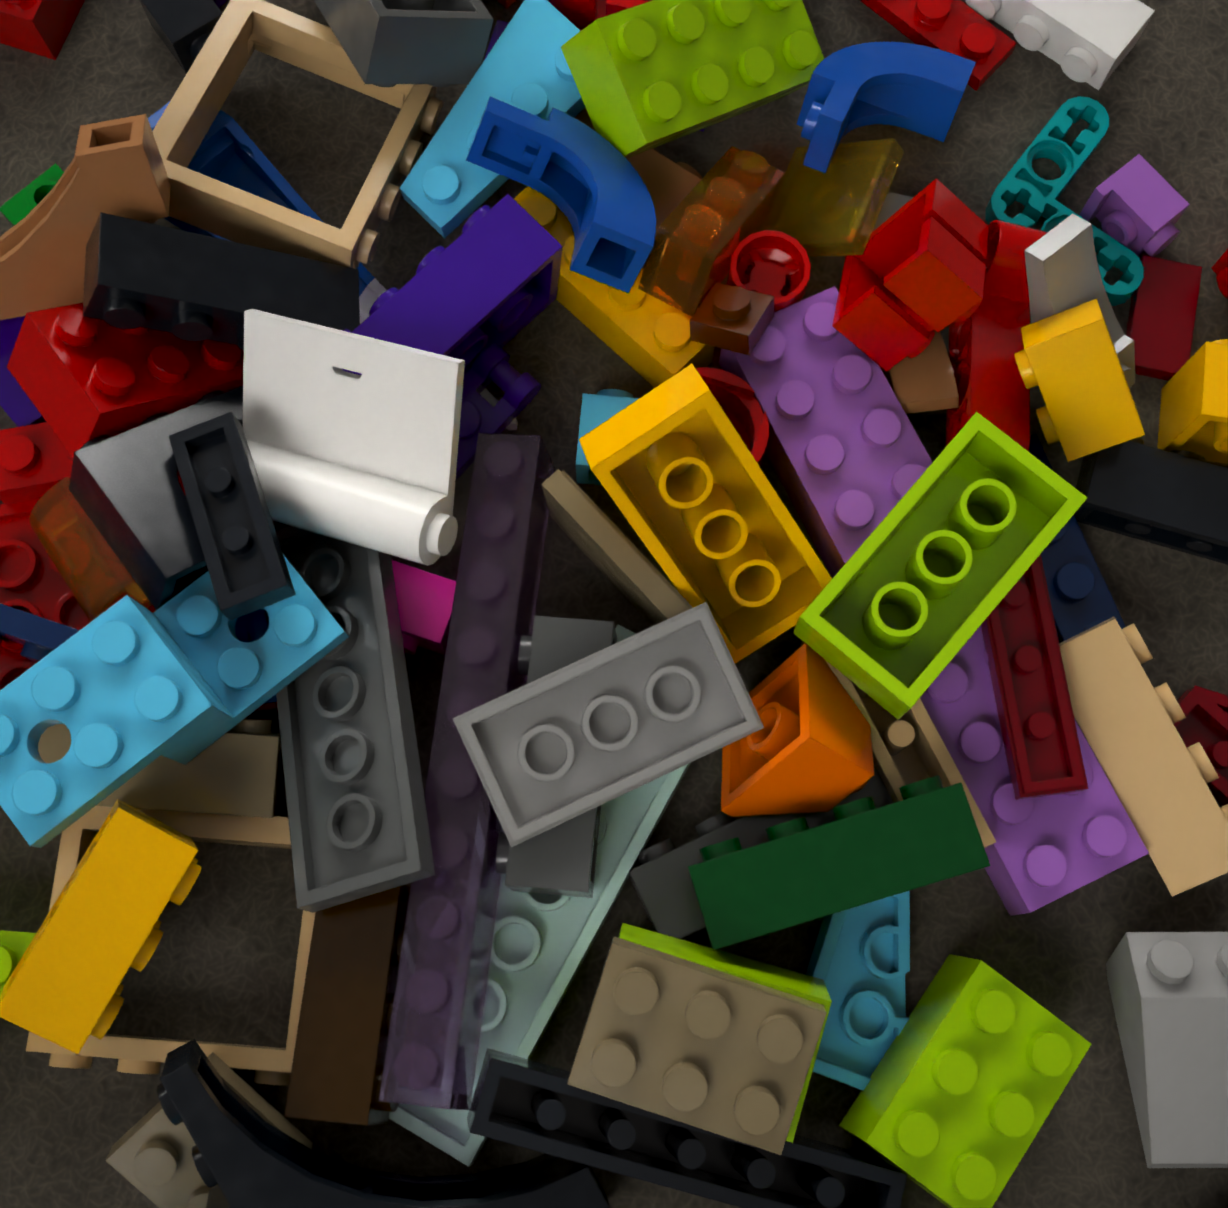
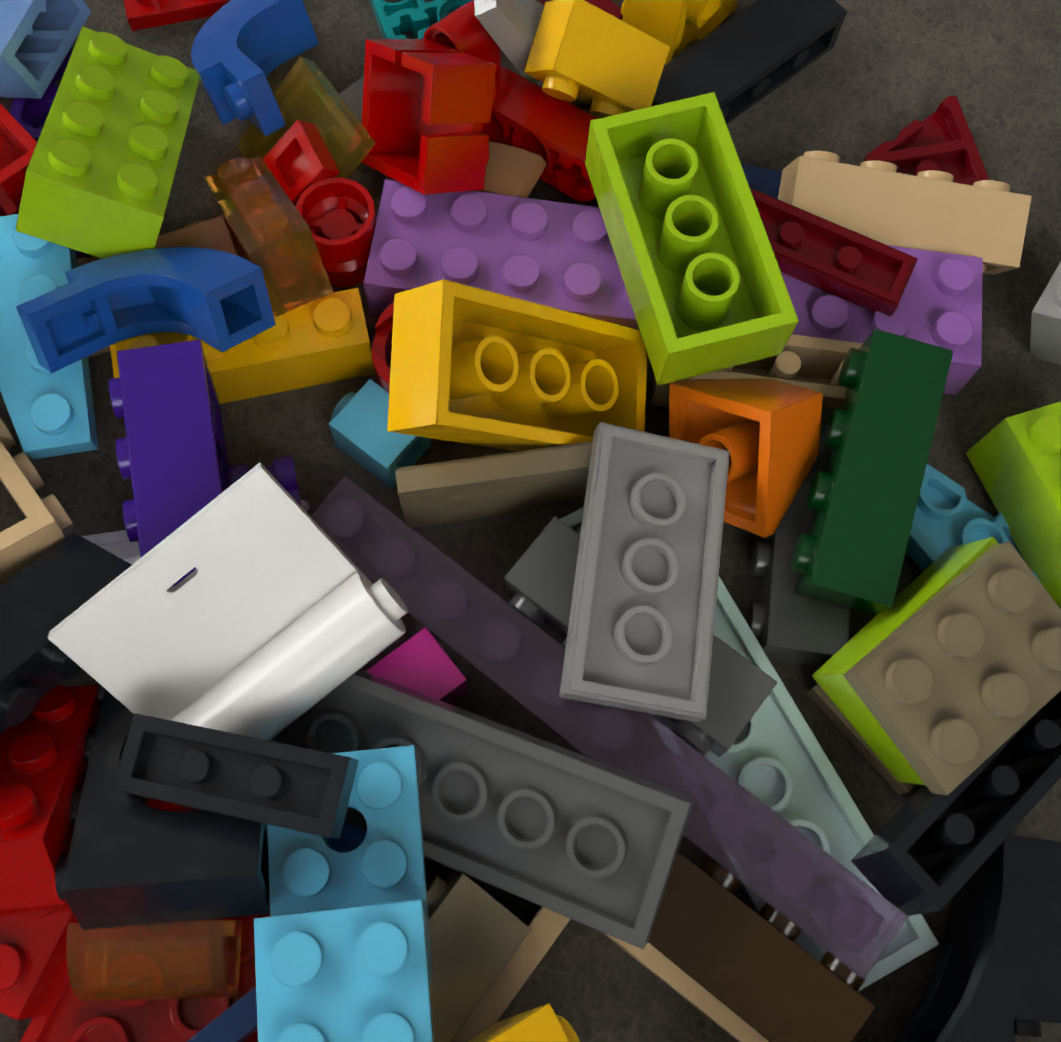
camera: 60 degrees left, 5 degrees down
(732, 318) = (358, 263): reddish brown plate -> none
(798, 208) = (300, 159): none -> red plate

